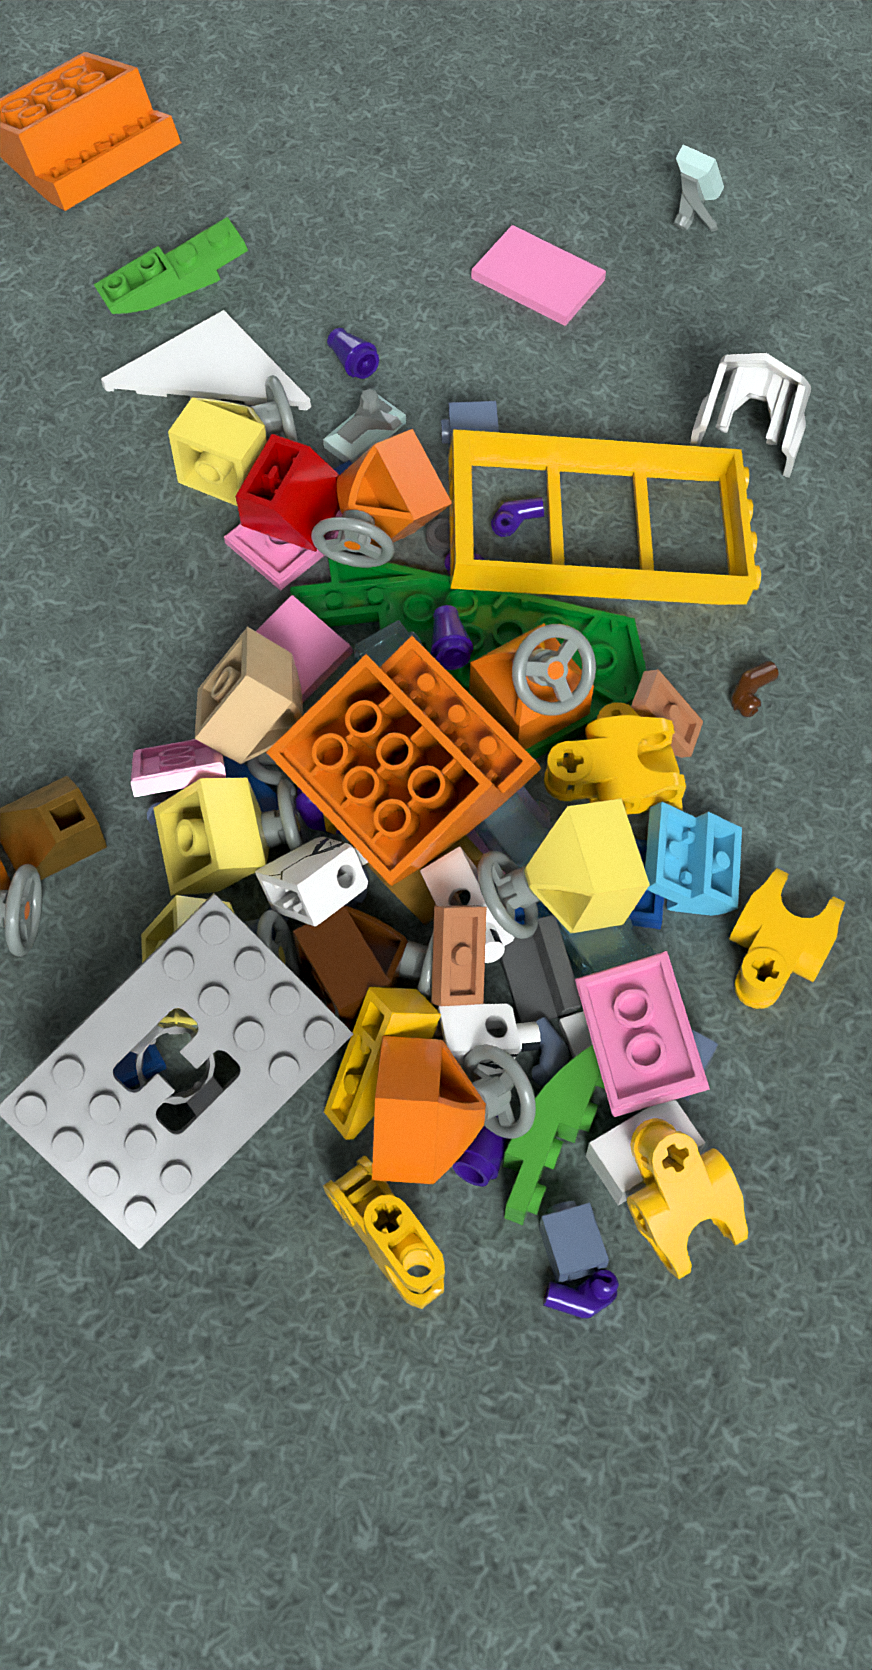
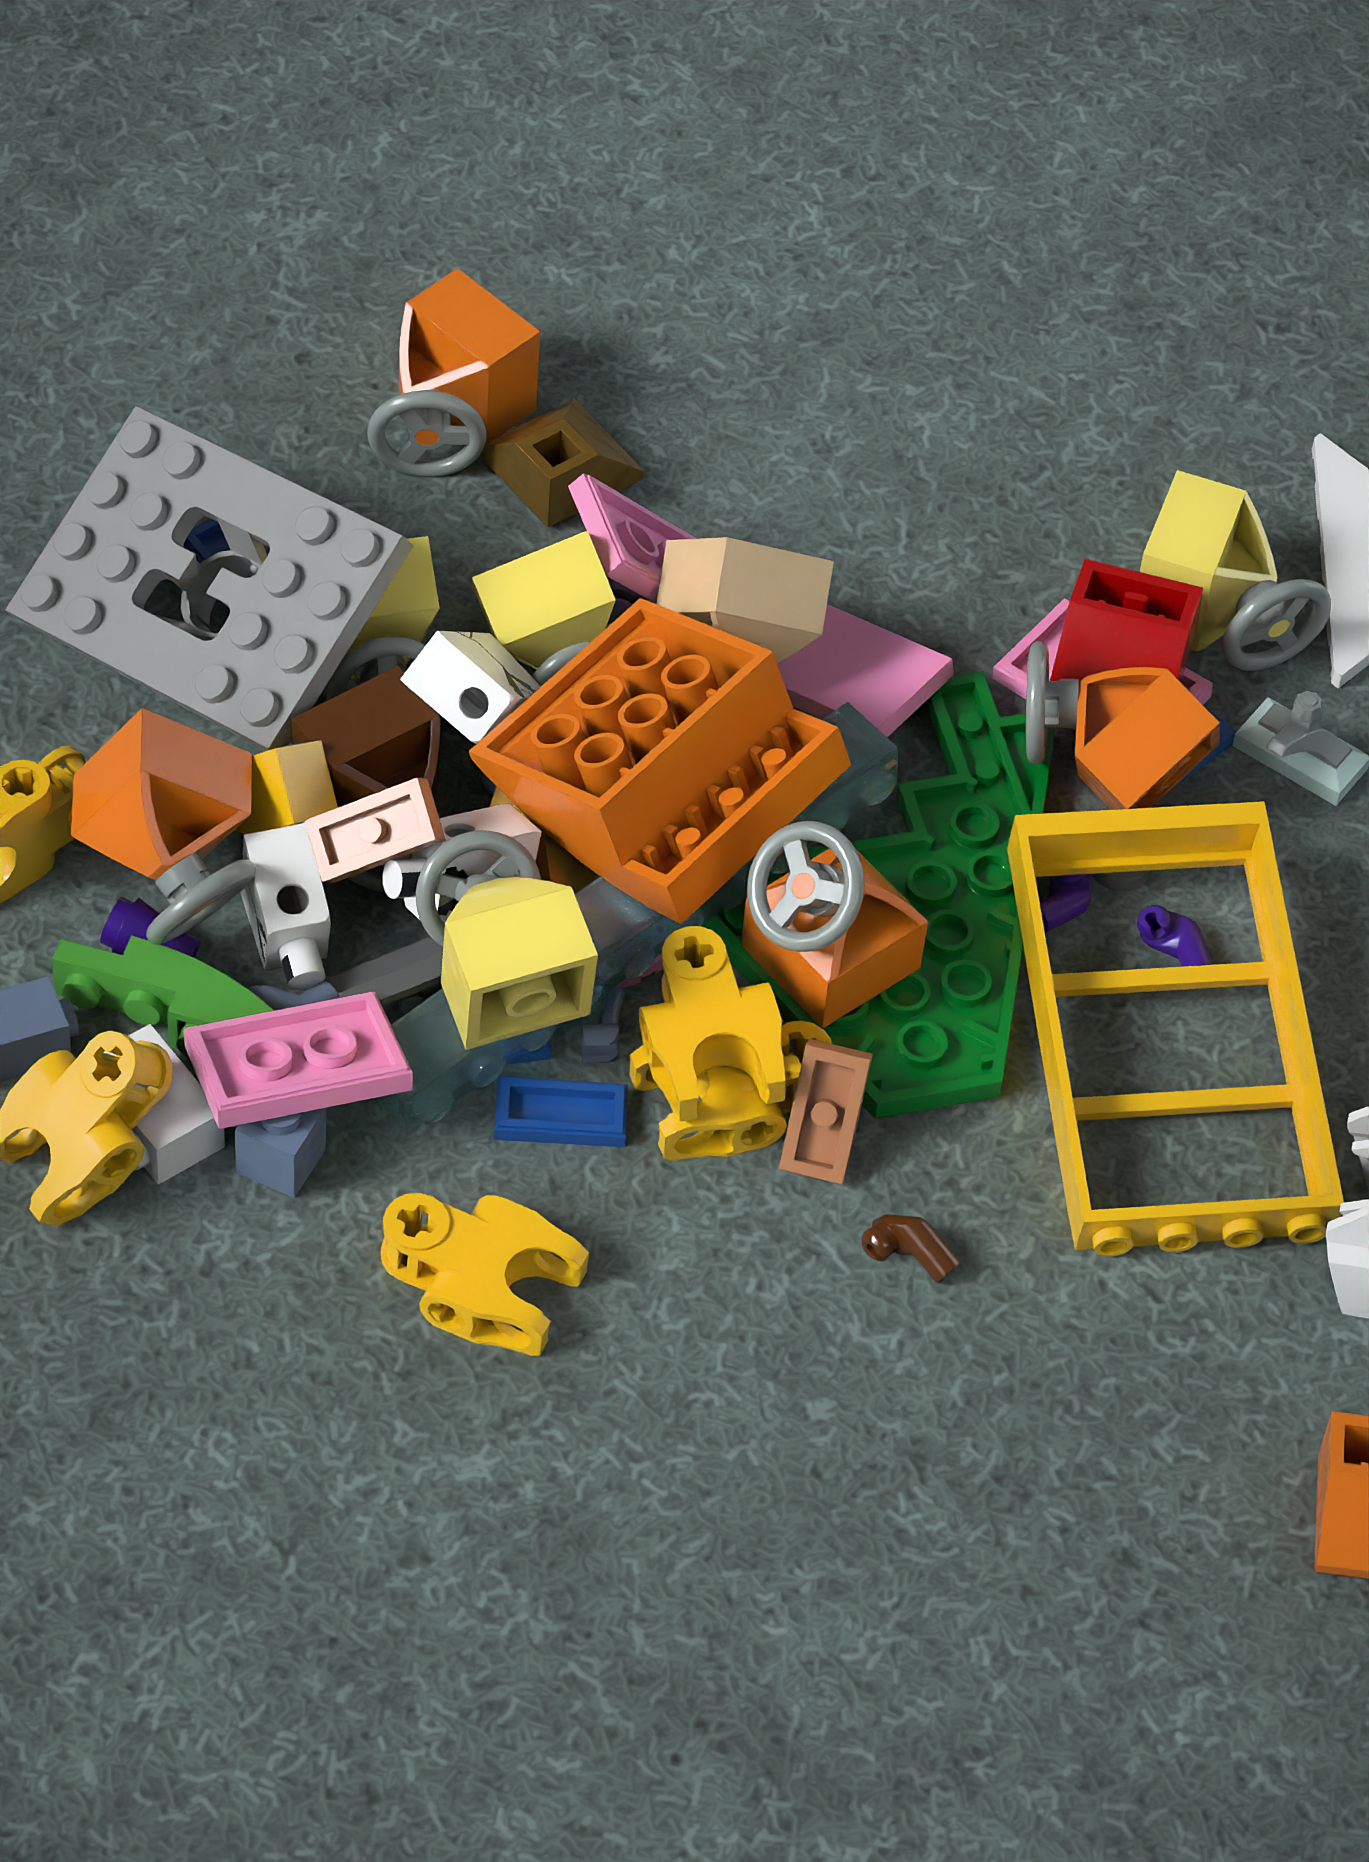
camera: 80 degrees right, 10 degrees down
(449, 639) = (911, 843): dark purple cone -> none
(469, 416) = (1323, 872): sand blue brick -> none
(693, 860) = (591, 1146): medium azure brick -> none

